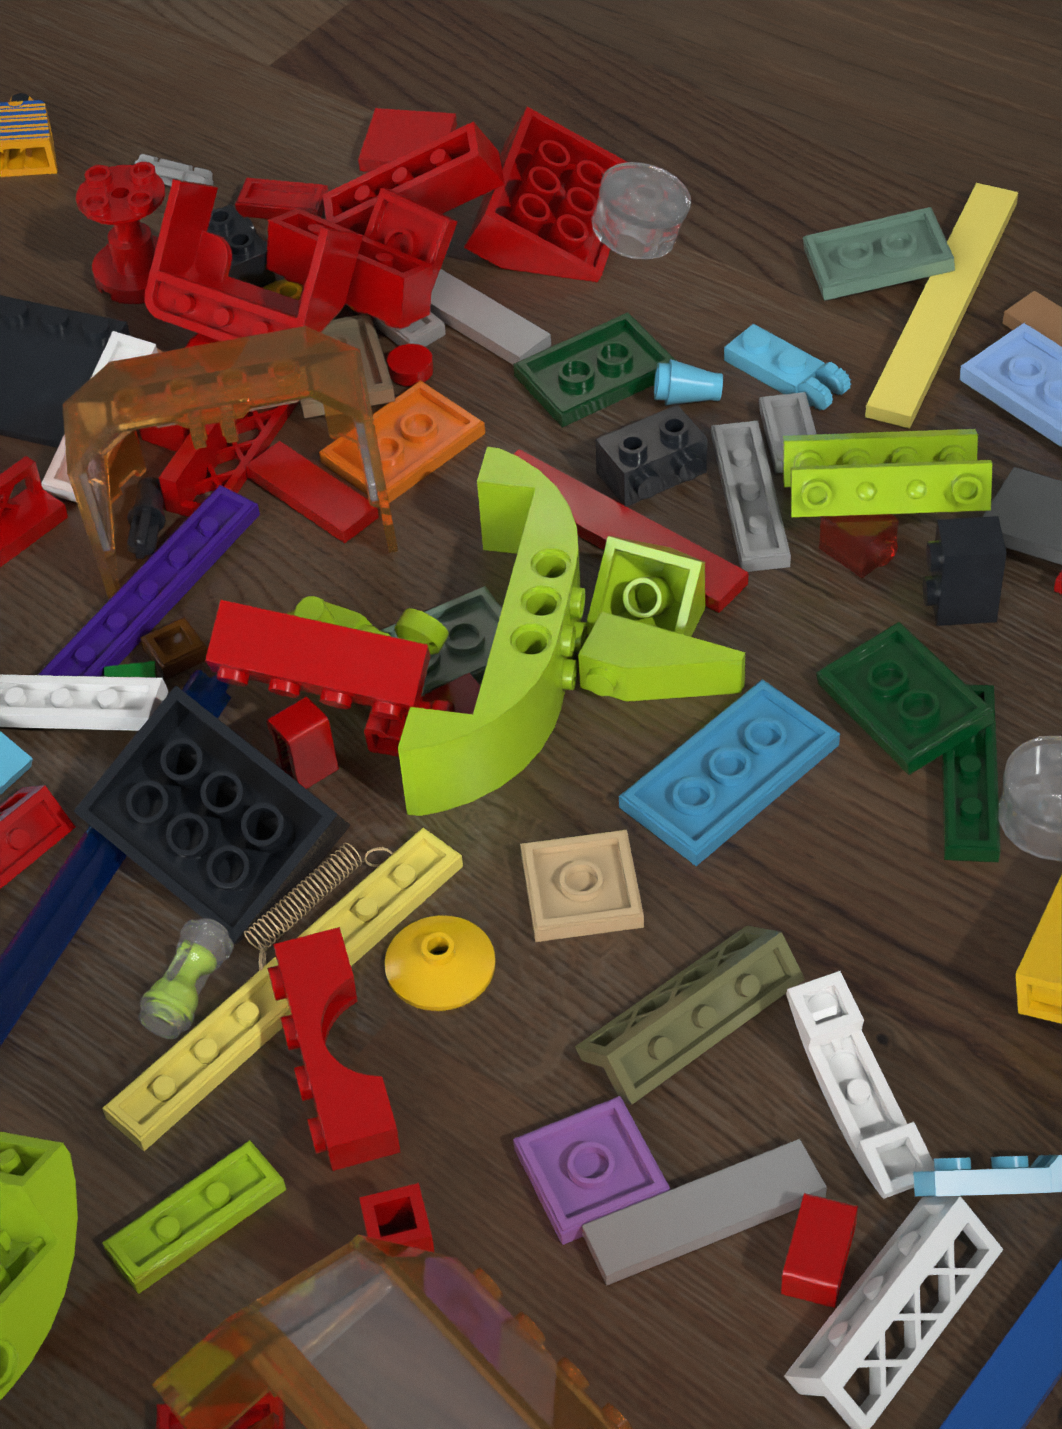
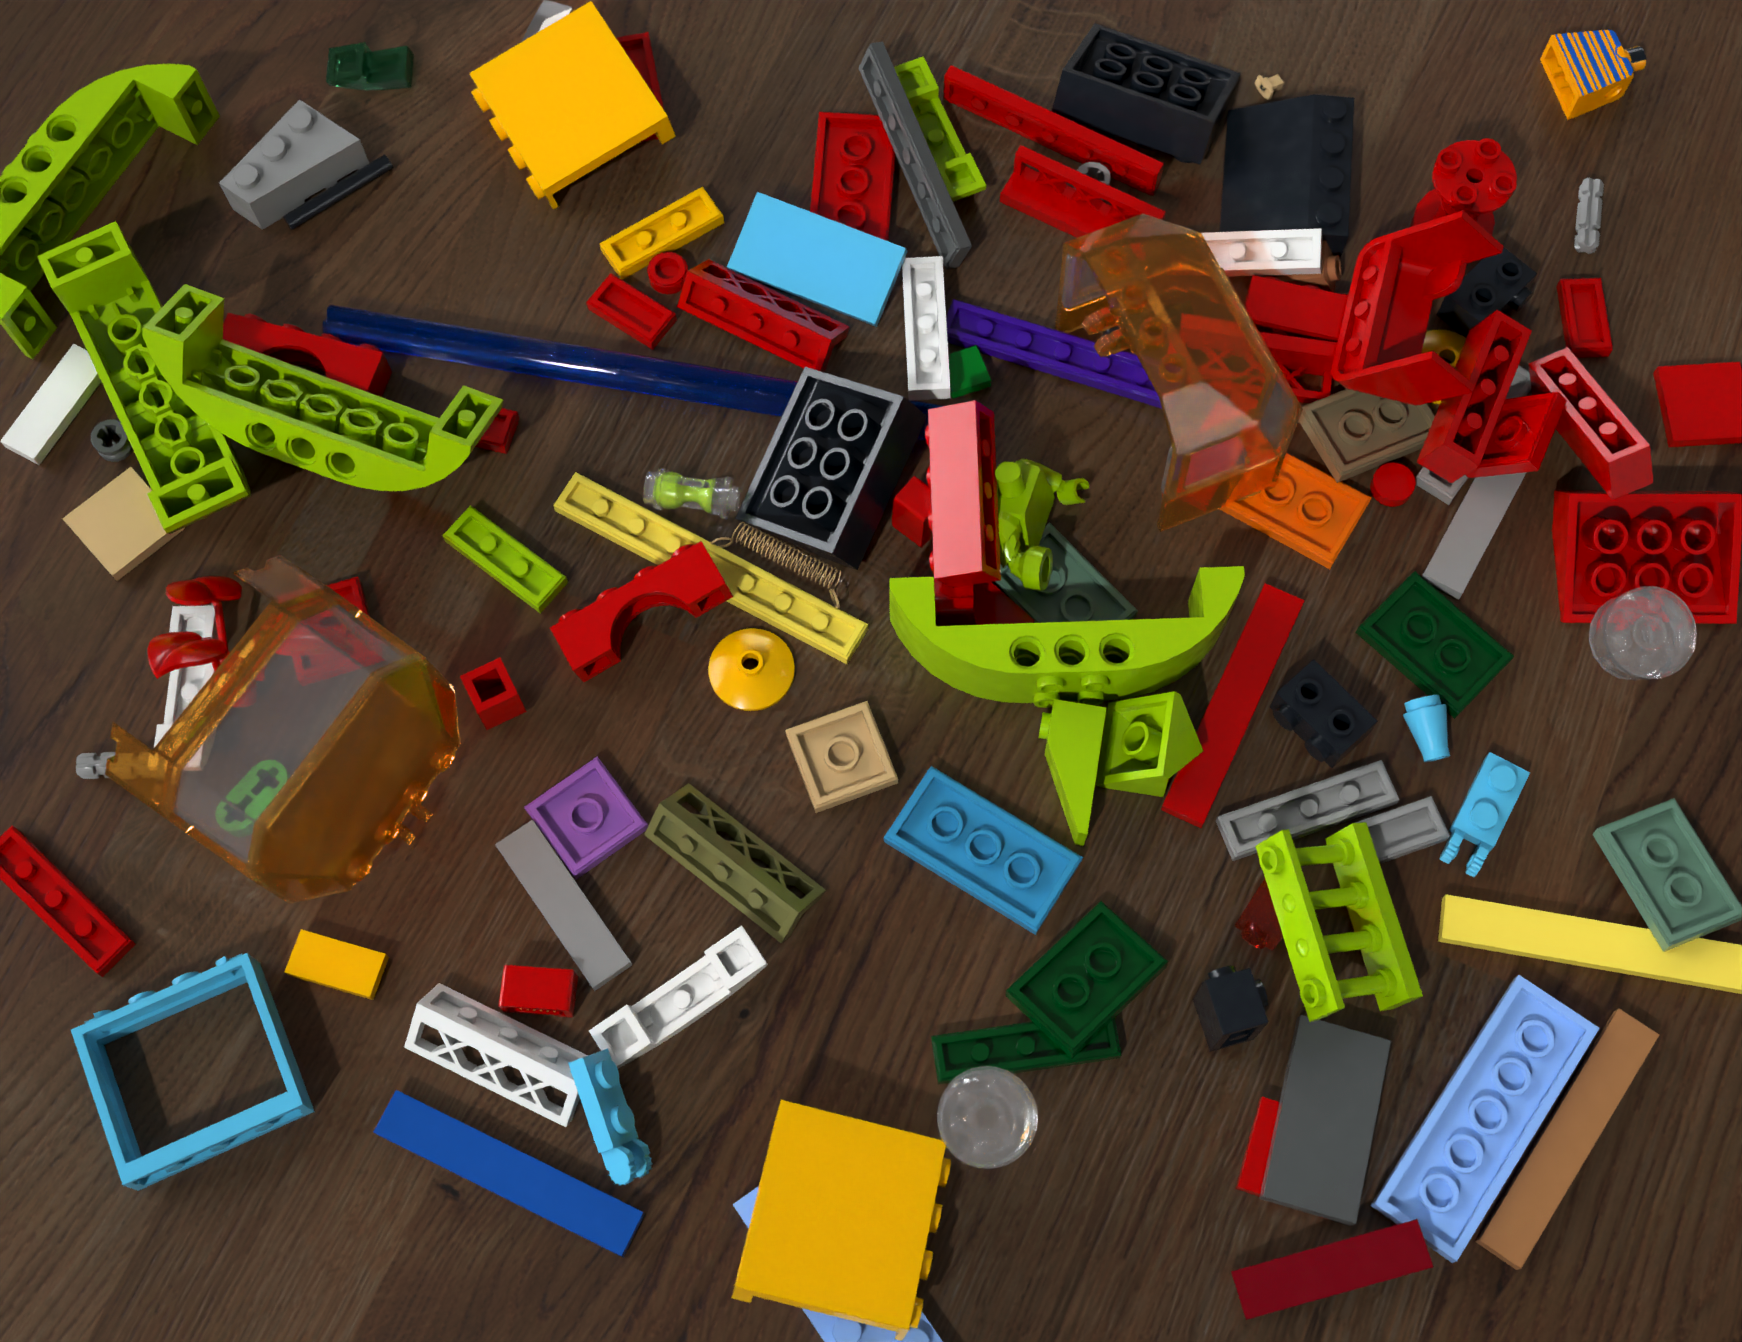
camera: 75 degrees right, 20 degrees up
(174, 648) = (1014, 391): reddish brown tile -> none

